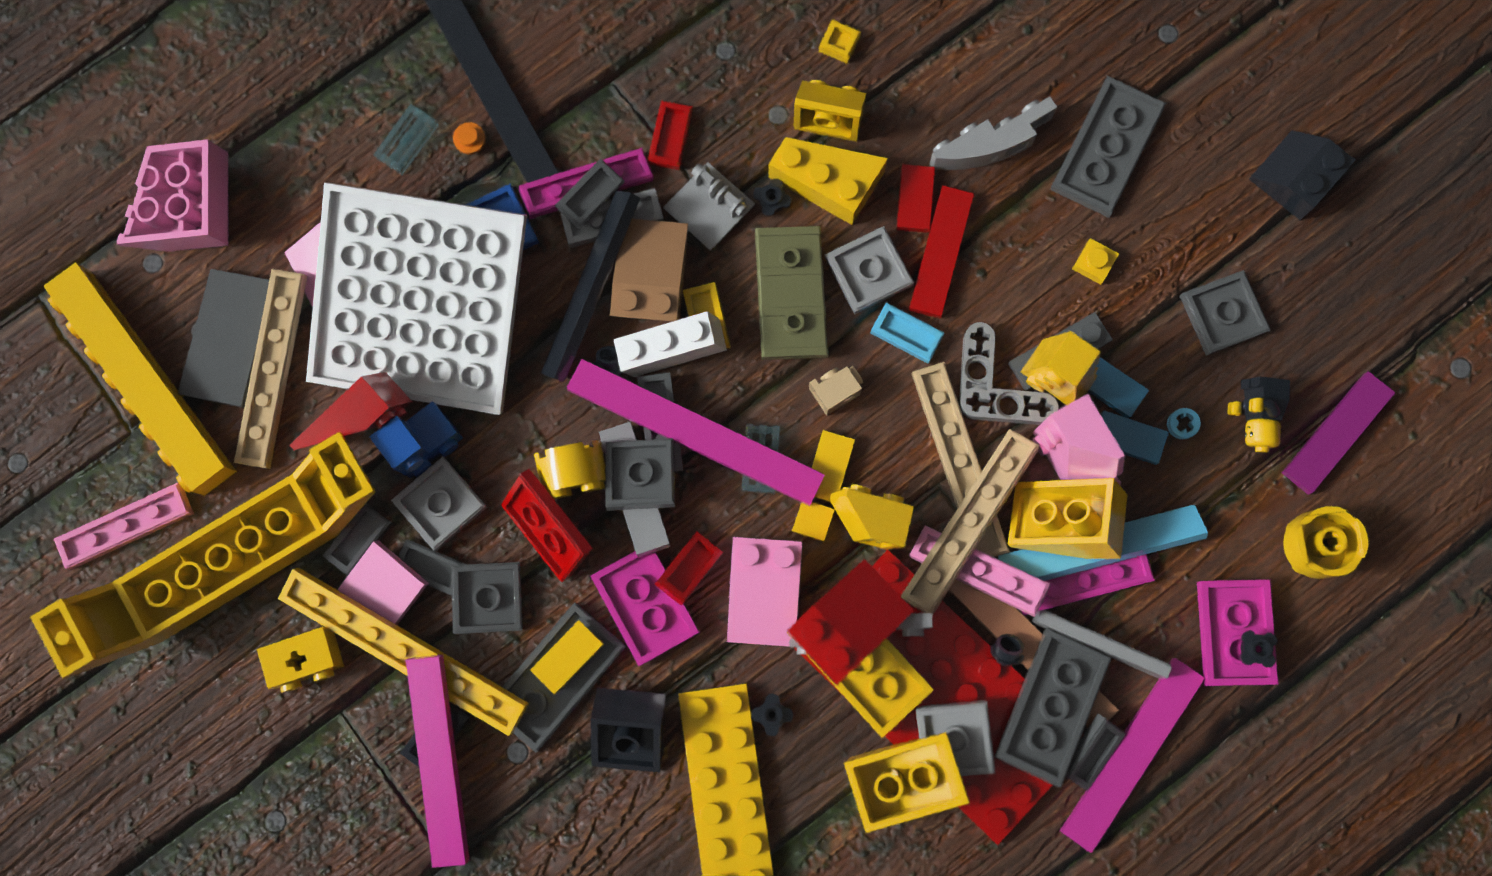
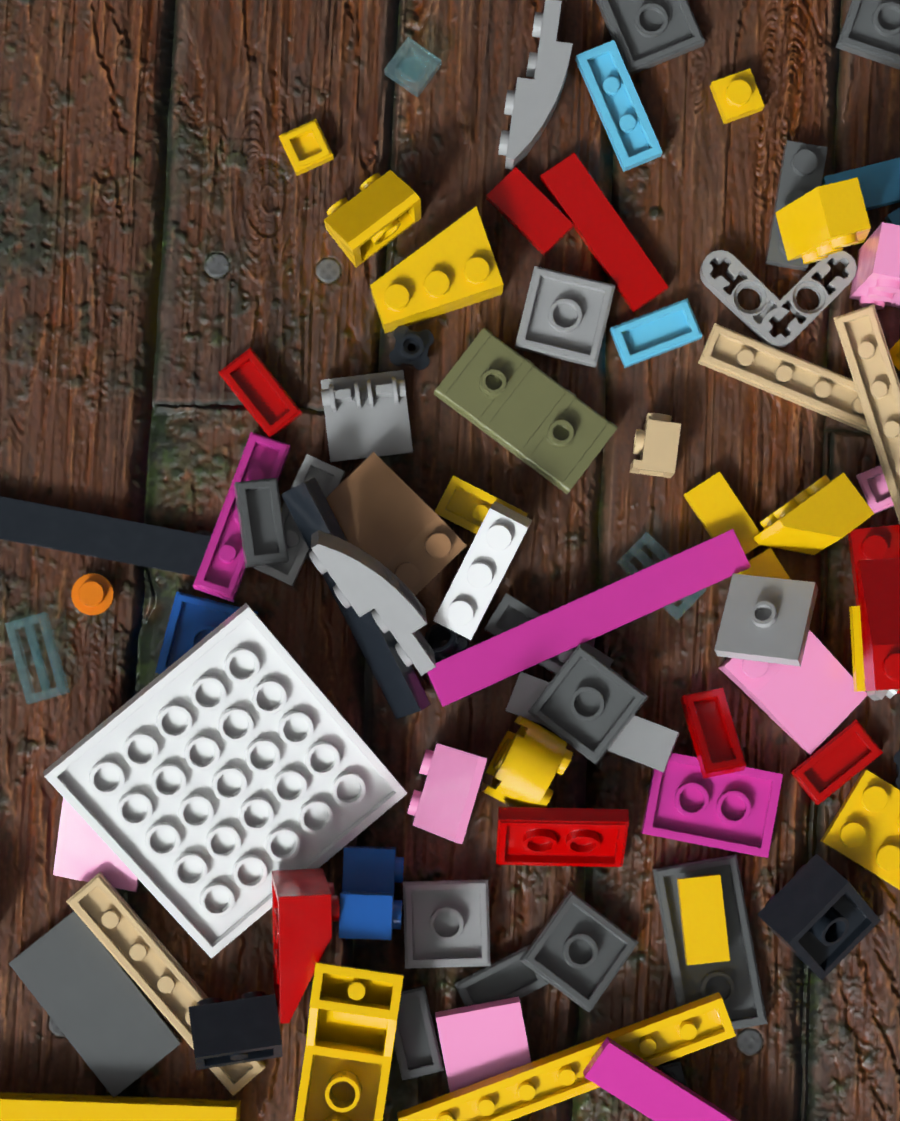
camera: 60 degrees left, 5 degrees up
(266, 425) = (235, 1030): none -> black brick
(517, 438) = (448, 792): none -> bright pink slope
(599, 276) = (370, 585): none -> light grey slope
(735, 661) = (836, 762): none -> red tile
(782, 537) = (766, 619): none -> light grey plate
(941, 59) = (412, 67): none -> clear light blue plate
(1025, 196) = (618, 105): none -> medium azure plate

